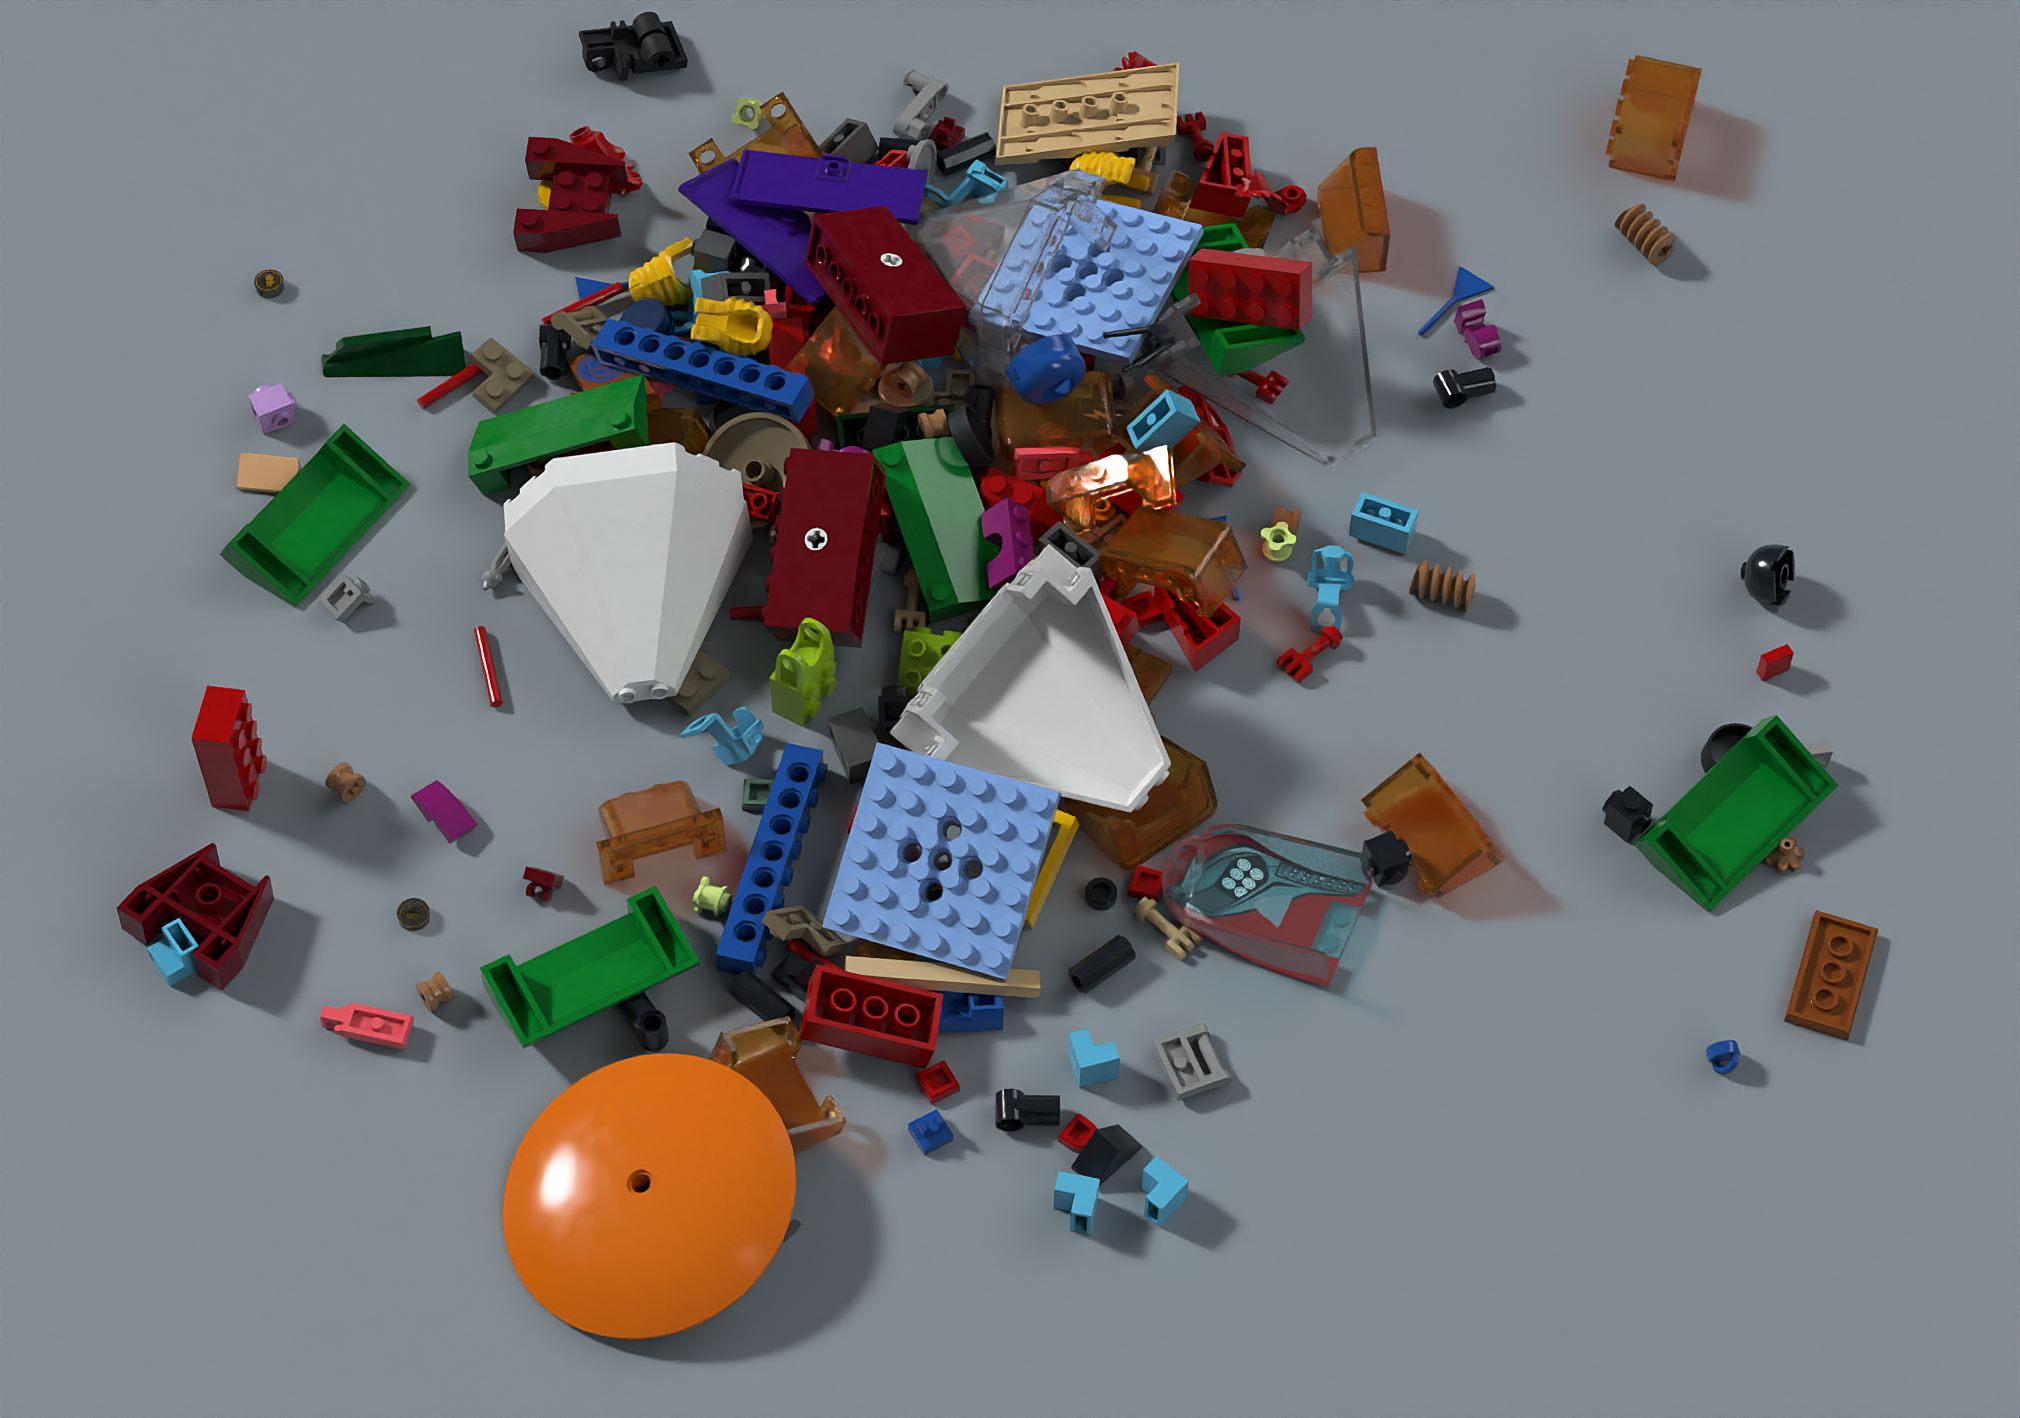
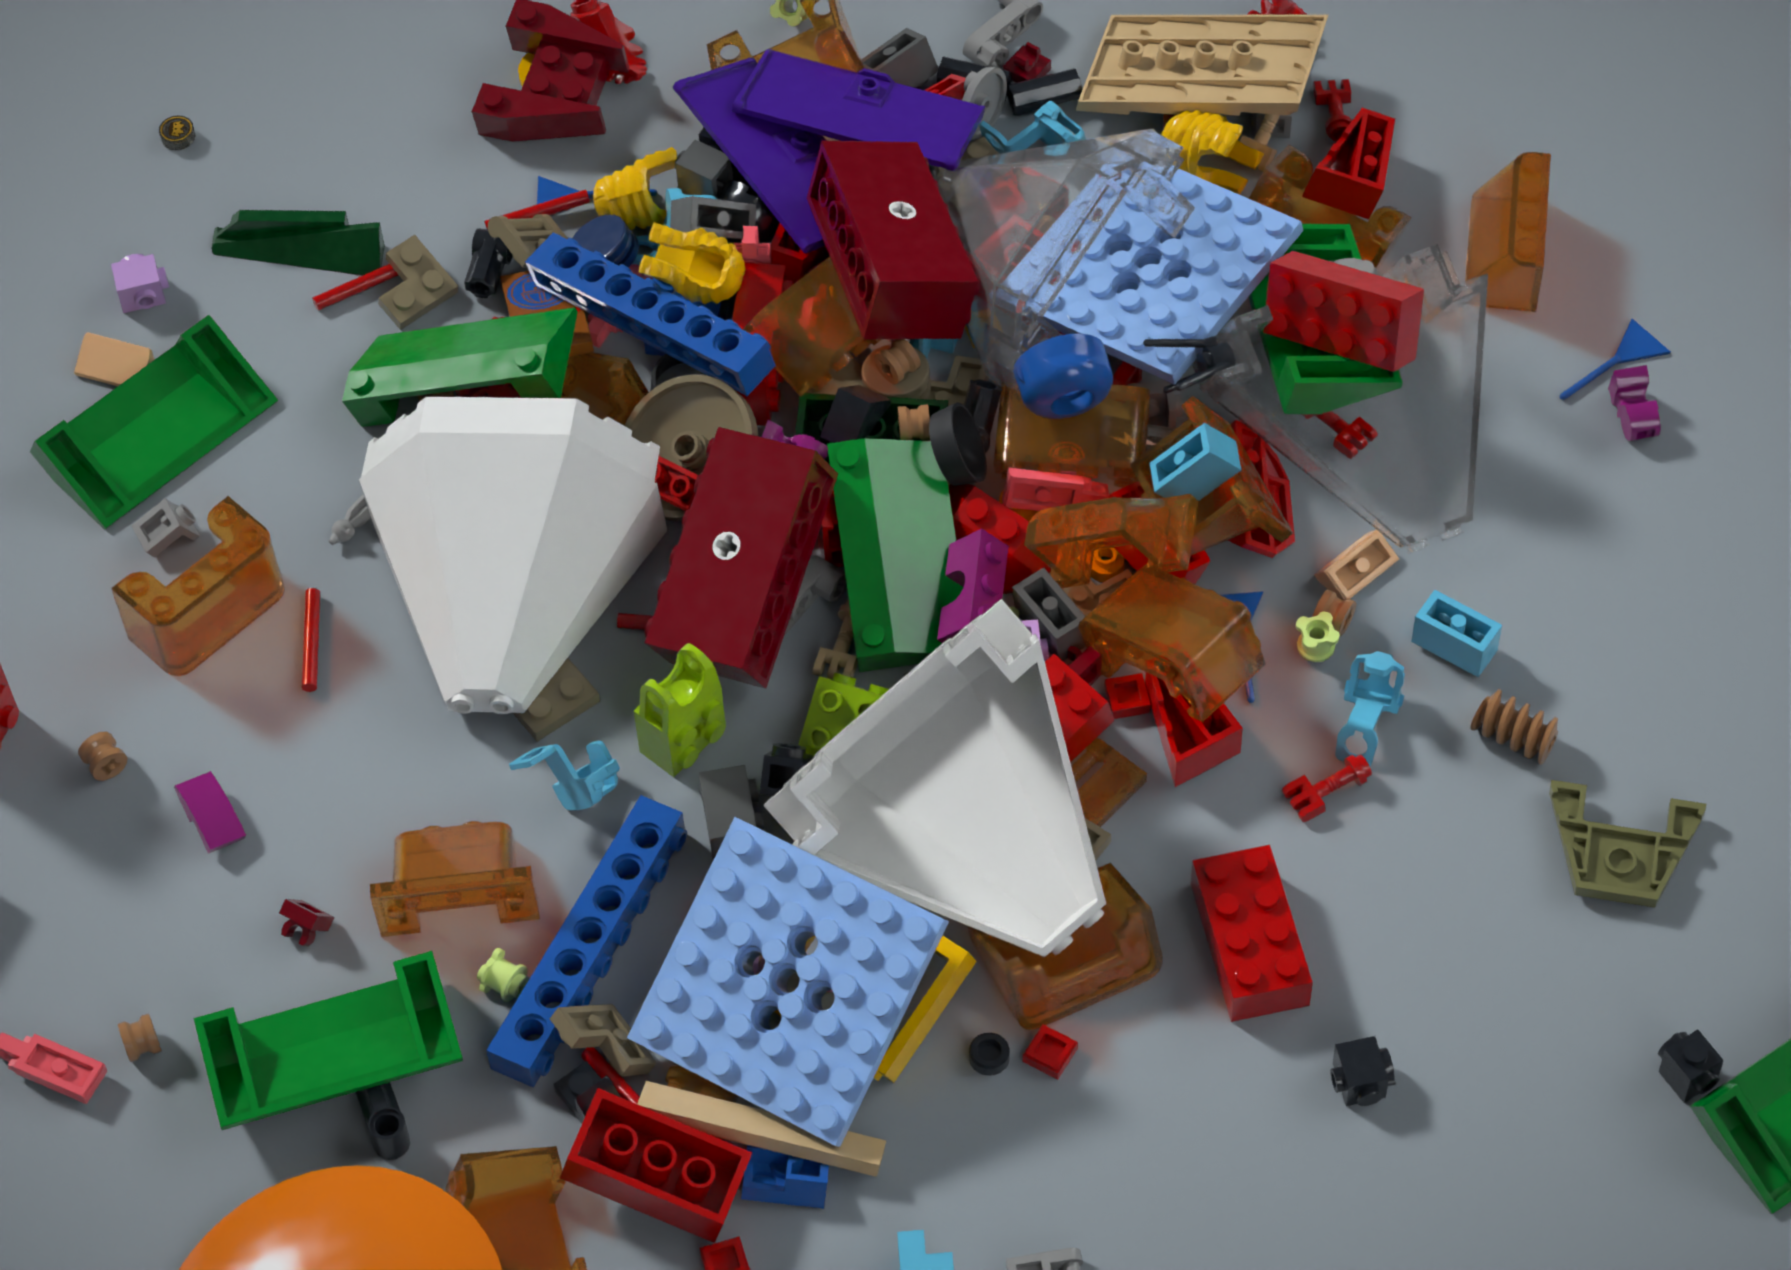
camera: 15 degrees right, 0 degrees up
(393, 662) = (207, 602): none -> clear orange windscreen
(413, 914) = (142, 935): clear smoke tile -> none
(756, 794) = (590, 852): sand green tile -> none
(760, 997) = (532, 1115): black axle -> none
(1102, 964) = (967, 1146): black axle -> none
(1178, 937) = (1040, 1085): tan hinge -> none
(1269, 896) = (1198, 1096): clear light blue windscreen -> none
(1279, 770) = (1251, 933): none -> red brick
(1283, 201) = (1417, 205): red plant -> none
(1294, 483) = (1357, 565): none -> light nougat slope
(1436, 825) = (1434, 1037): clear orange windscreen -> none
(1457, 388) = (1592, 473): black piece -> none
(1540, 673) = (1620, 860): none -> olive wing

